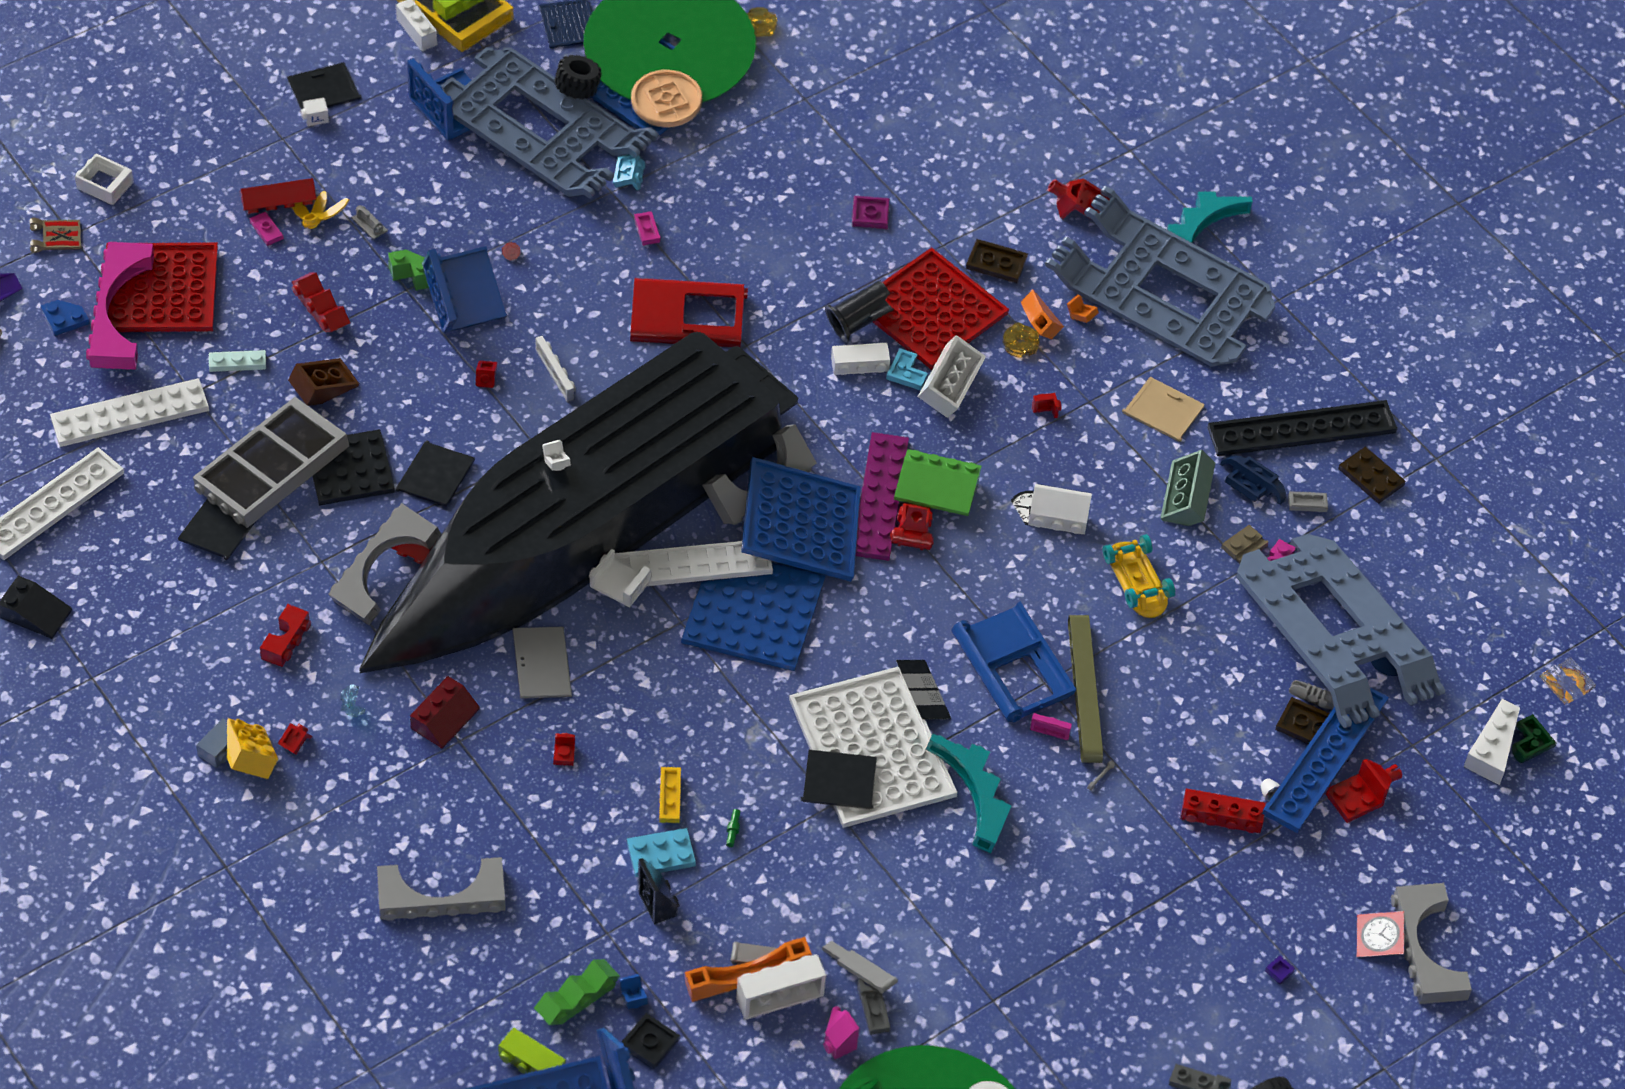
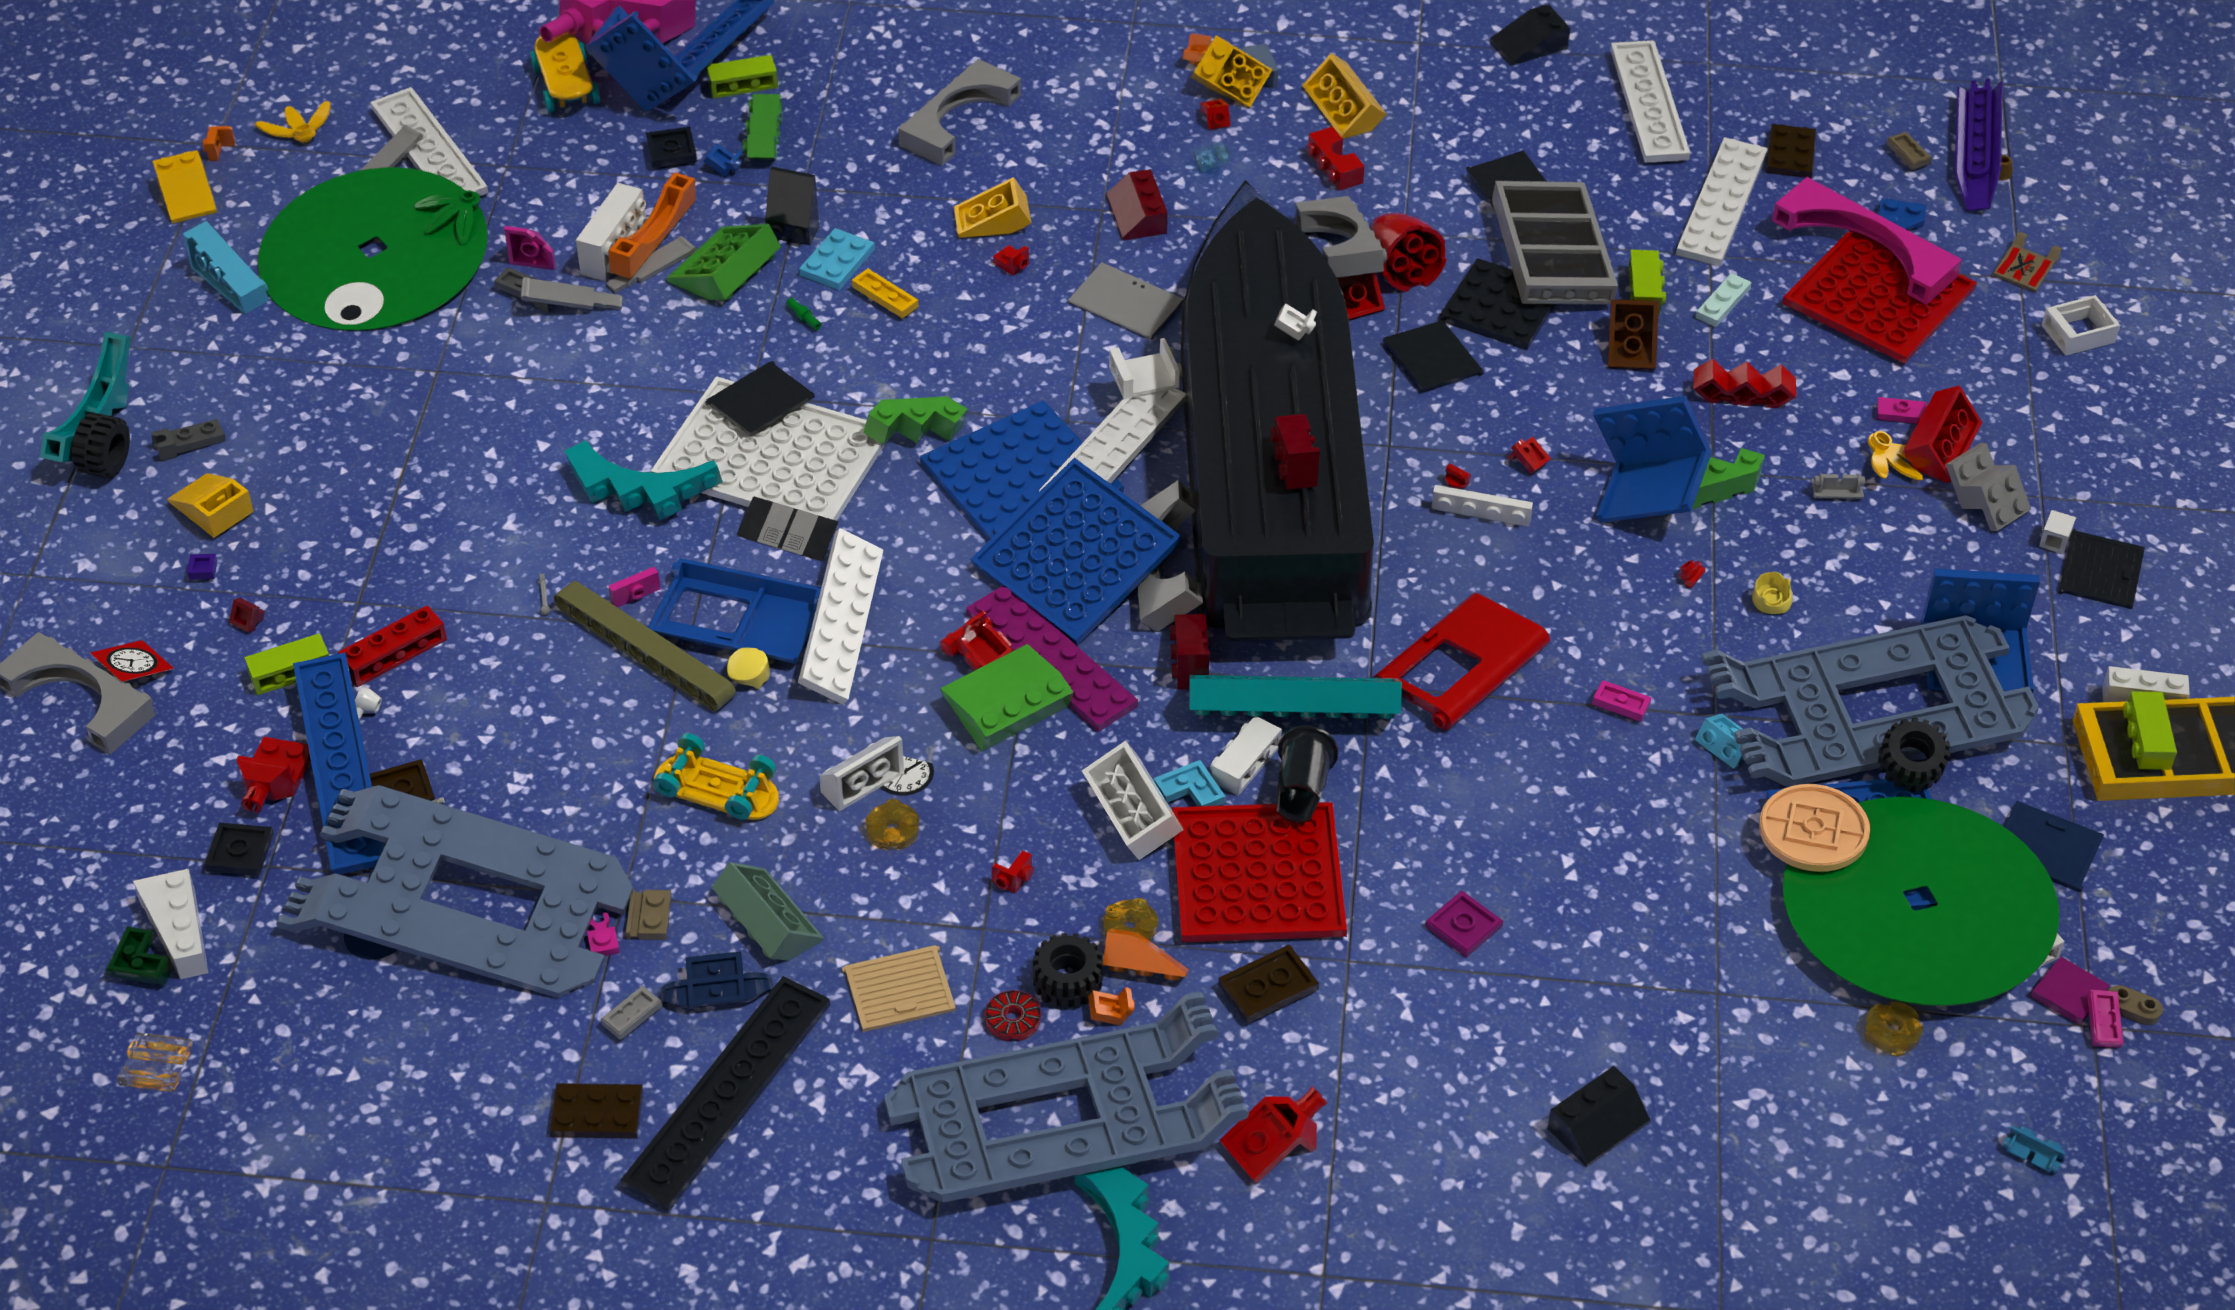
camera: 135 degrees right, 5 degrees down
(37, 404) = (1791, 151): none -> dark brown plate
(211, 671) = (1343, 98): none -> yellow slope
(235, 792) = (1196, 48): none -> orange bracket
(261, 402) = (1646, 277): none -> lime brick
(311, 148) = (1988, 487): none -> light grey bracket
(351, 530) = (1410, 249): none -> red cylinder
(494, 207) = (1772, 593): none -> light yellow hair
(532, 790) = (994, 211): none -> yellow slope
(539, 395) = (1456, 477): none -> red plate
(670, 389) = (1295, 451): none -> dark red wedge
(733, 911) = (726, 261): none -> bright green slope
(775, 679) = (914, 418): none -> bright green brick
(803, 353) = (1295, 694): none -> teal brick
(820, 421) = (1189, 648): none -> dark red wedge
(934, 100) = (1598, 1116): none -> black slope
(962, 605) = (841, 616): none -> white plate
(1048, 620) = (748, 667): none -> light yellow hair
(1075, 473) = (892, 813): none -> clear yellow plate
(1085, 327) = (1067, 953): none -> black tyre
(1131, 342) = (1013, 1002): none -> tile
(1234, 1010) = (213, 503): none -> yellow slope
(1287, 909) = (245, 614): none -> dark red tile
(1292, 851) = (275, 667): none -> lime brick
(1423, 760) = (239, 849): none -> black plate

